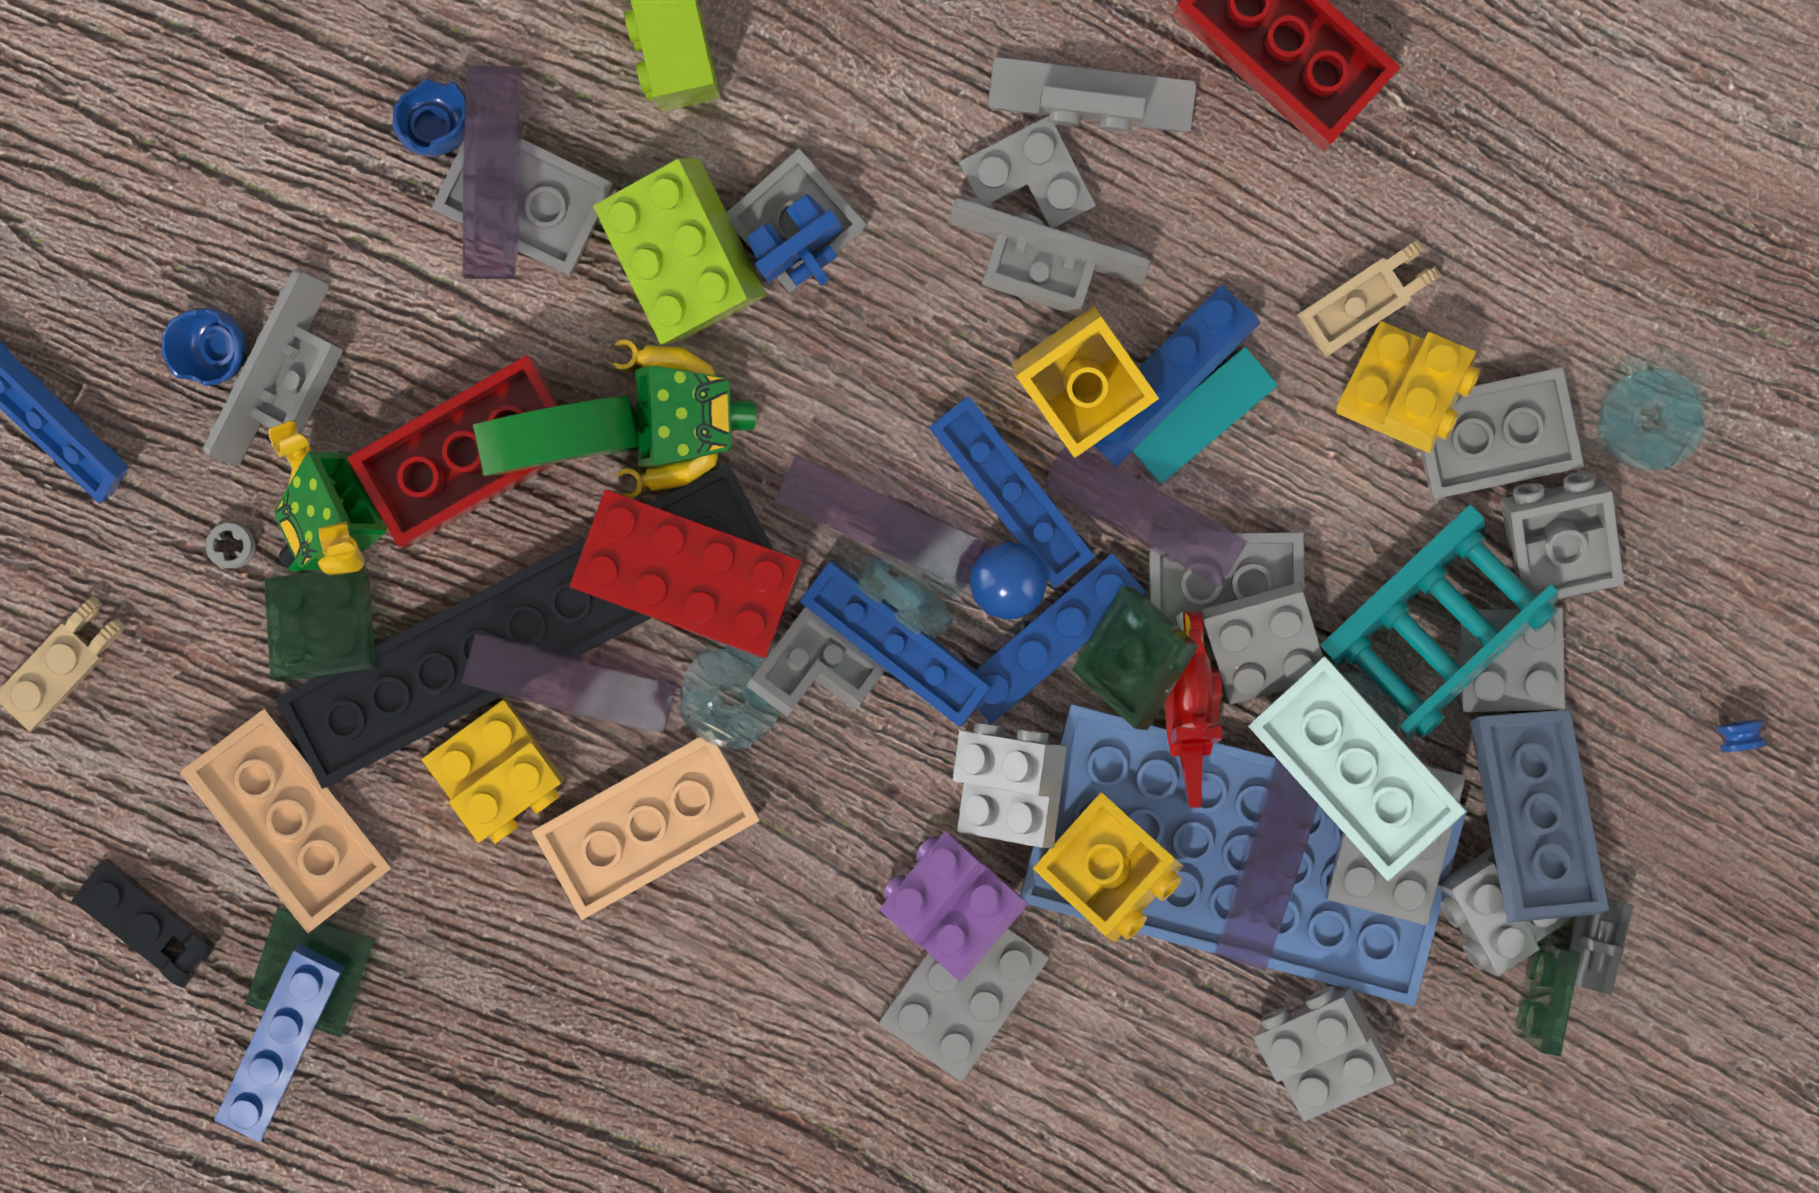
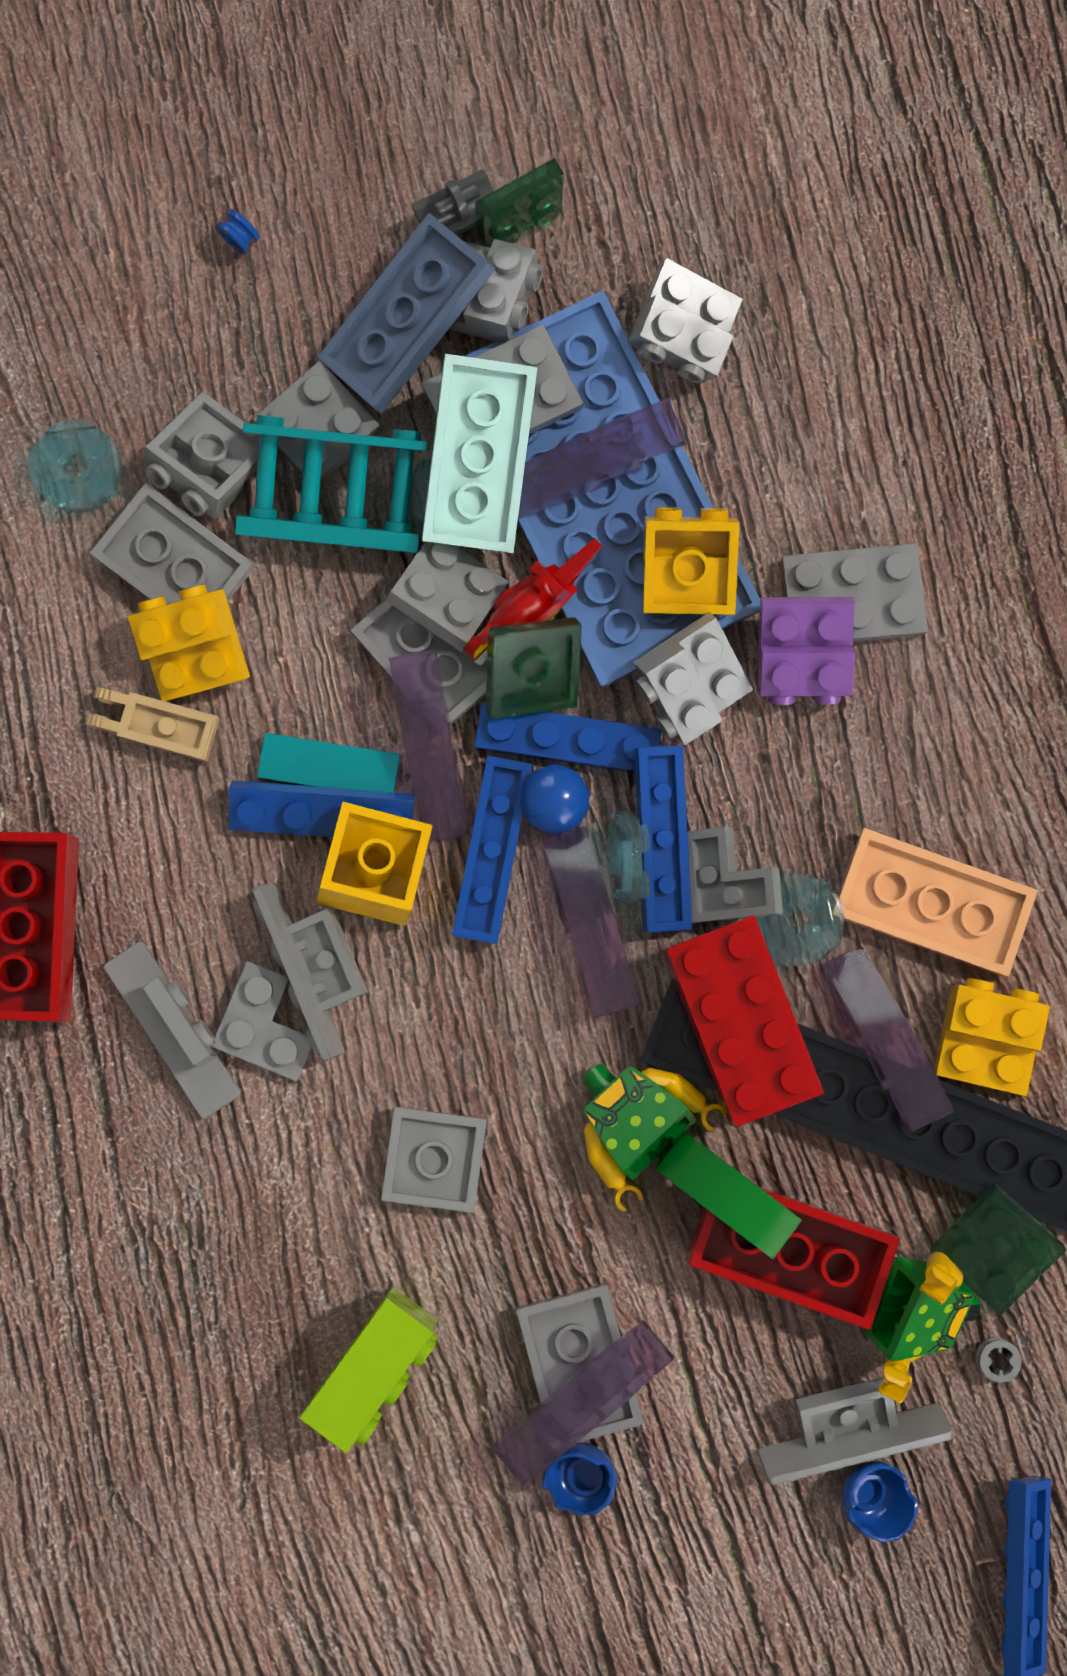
camera: 135 degrees left, 5 degrees down
(679, 250) = (523, 1222): lime brick -> none
(779, 256) = (469, 1149): blue hips -> none

